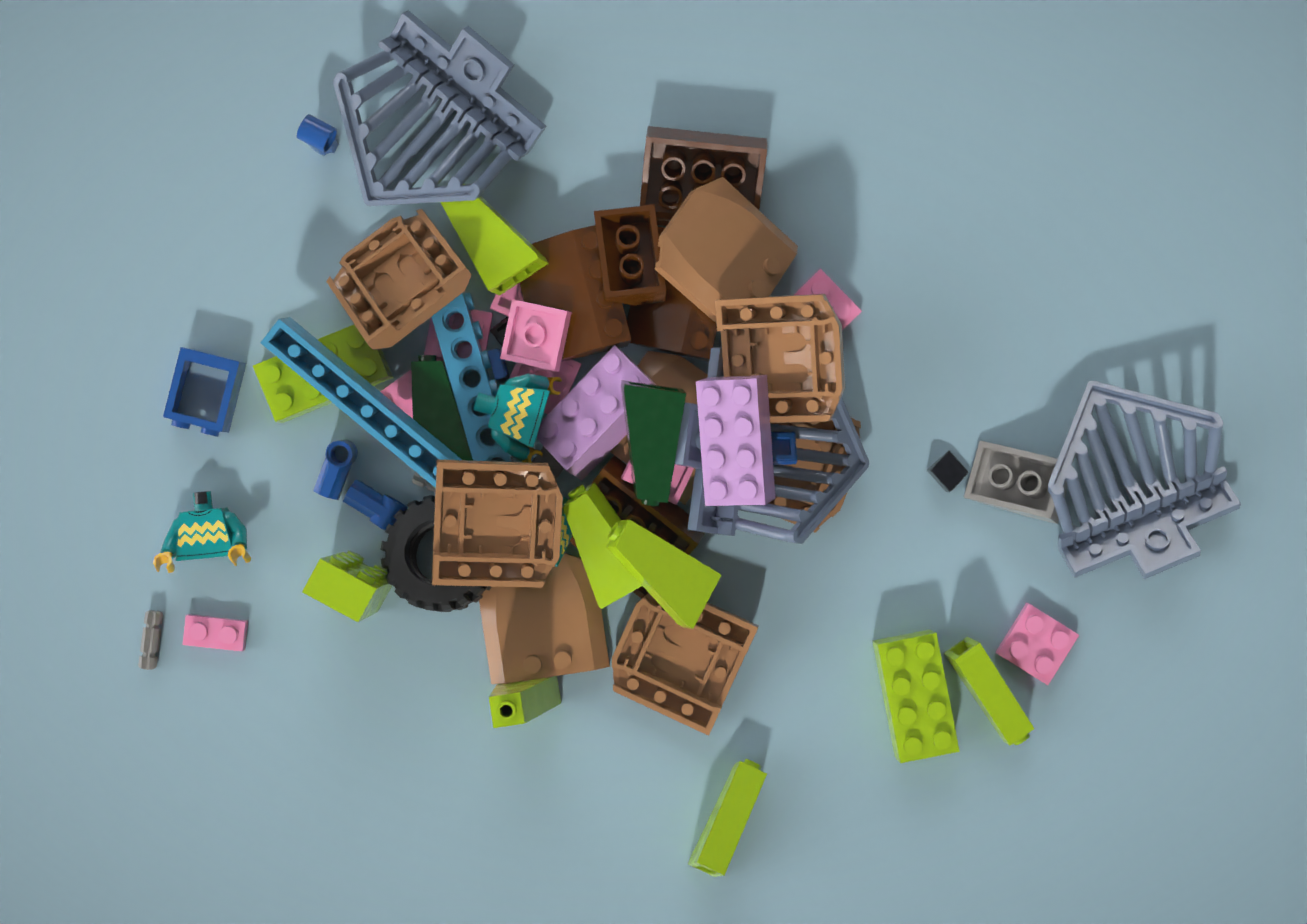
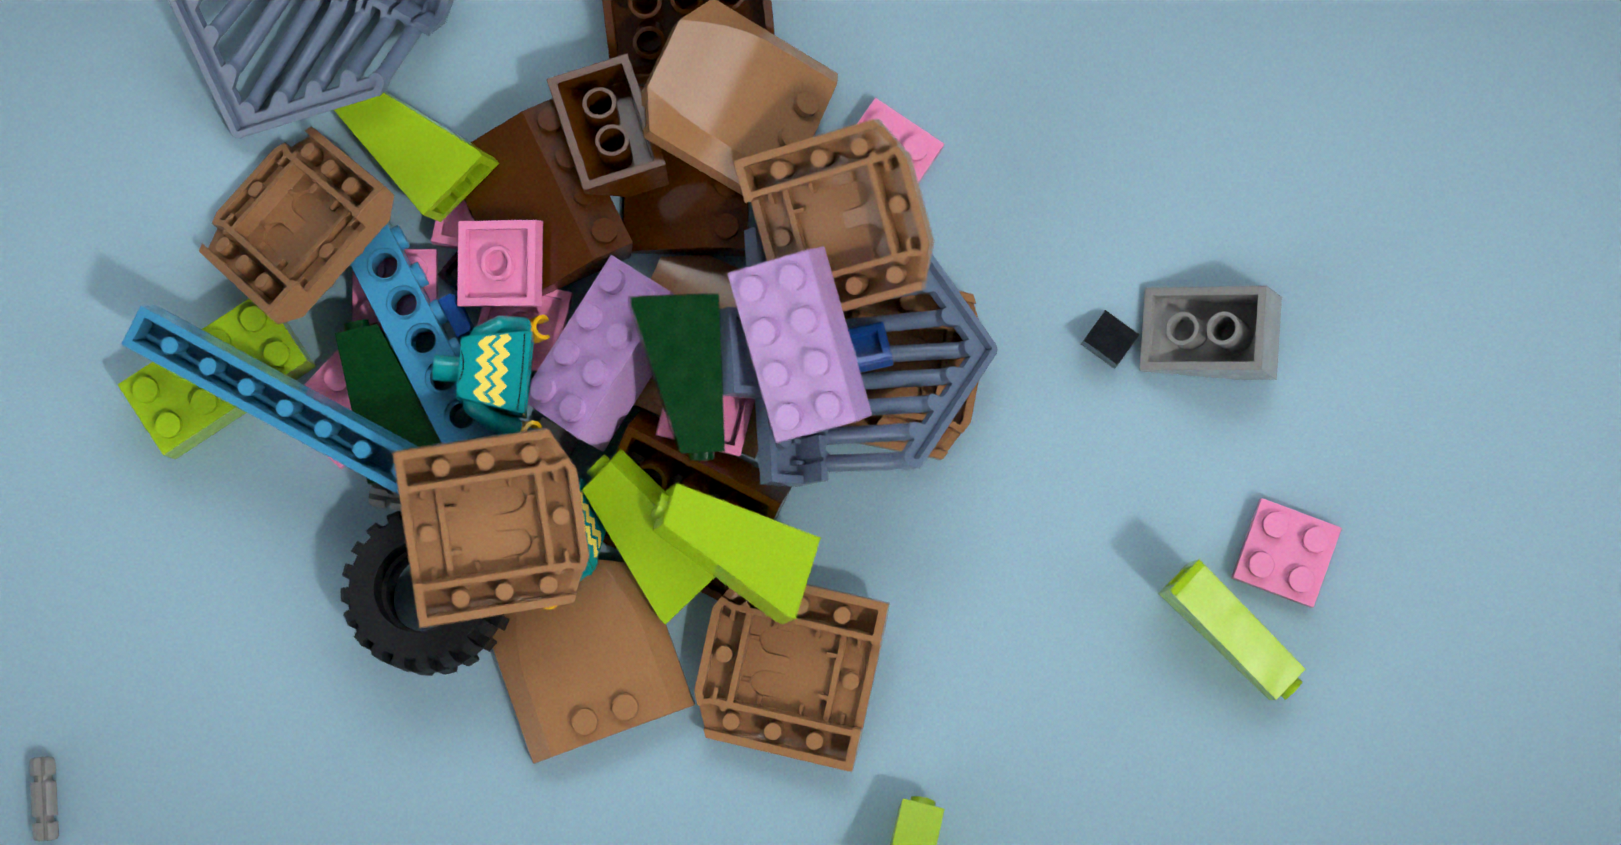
camera: 10 degrees left, 5 degrees down
(203, 535) = (91, 634): teal torso -> none
(215, 632) = (133, 770): bright pink plate -> none
(230, 396) = (96, 400): blue window -> none
(318, 135) = (151, 54): blue piece -> none
(335, 472) = (259, 512): blue piece -> none
(348, 585) = (305, 655): lime brick -> none
(373, 504) = (318, 544): blue piece -> none
(523, 700) = (582, 769): lime slope -> none
(915, 696) = (1131, 659): lime brick -> none
(1152, 527) = (1406, 358): sand blue plate -> none

